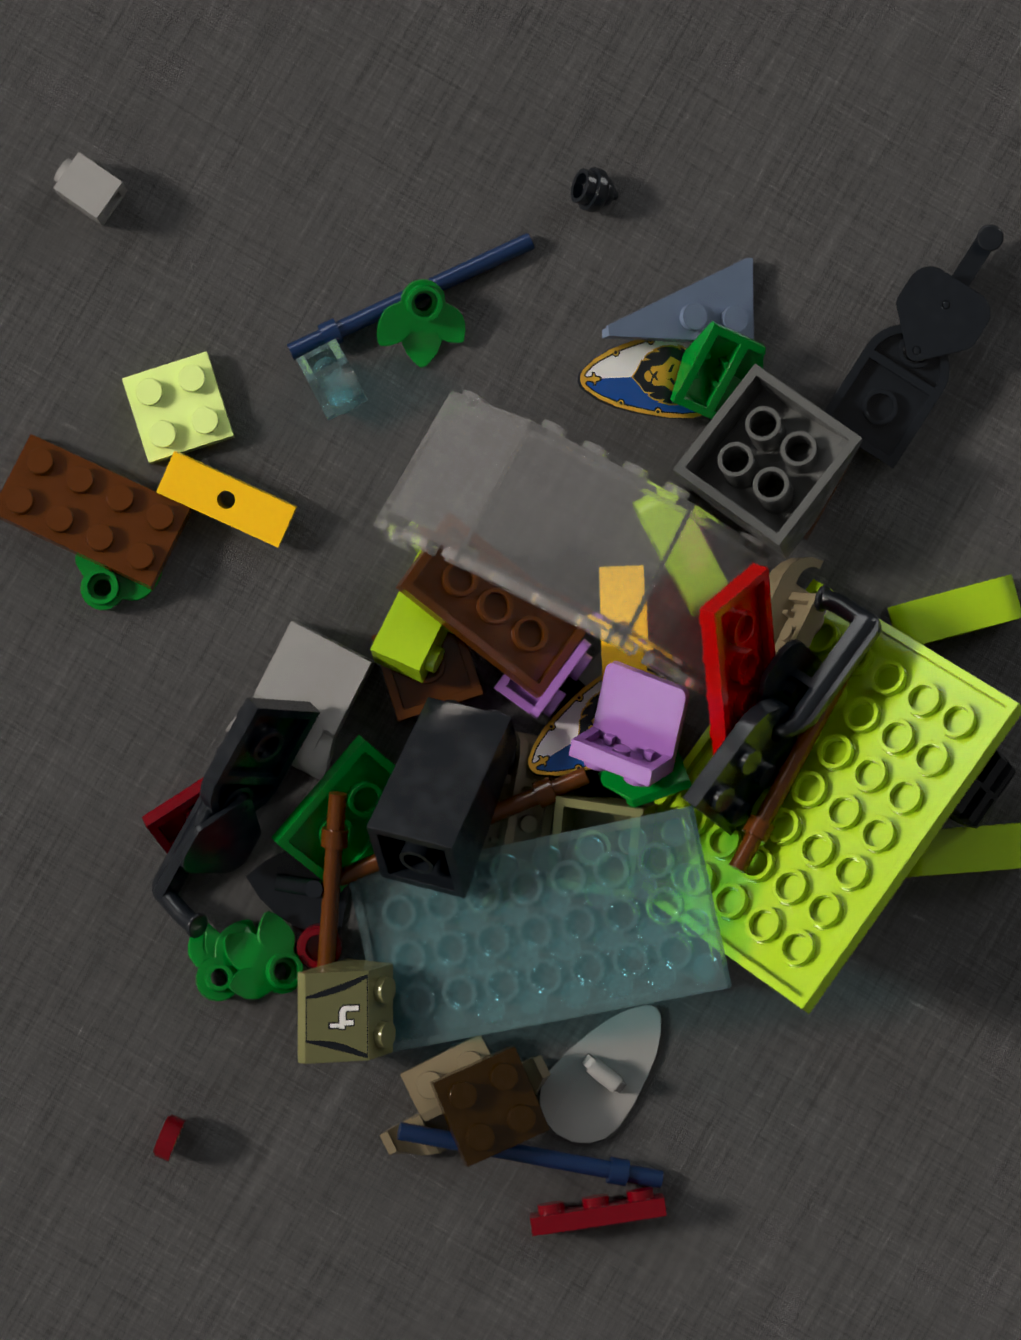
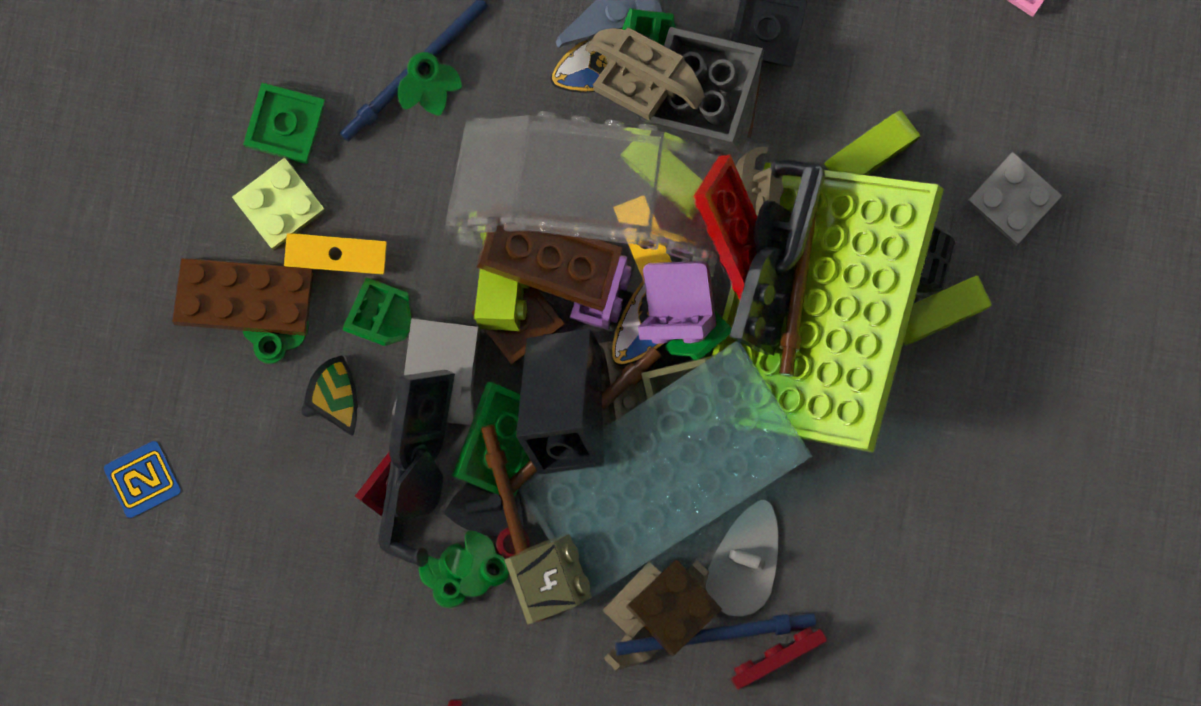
camera: 20 degrees left, 5 degrees down
(89, 188) = (162, 74): light grey brick -> none
(160, 678) = (333, 395): none -> shield
(221, 307) = (284, 123): none -> green plate
(255, 596) = (379, 314): none -> green slope
(332, 379) = (380, 144): clear light blue brick -> none
(697, 411) = (642, 72): none -> dark tan plate

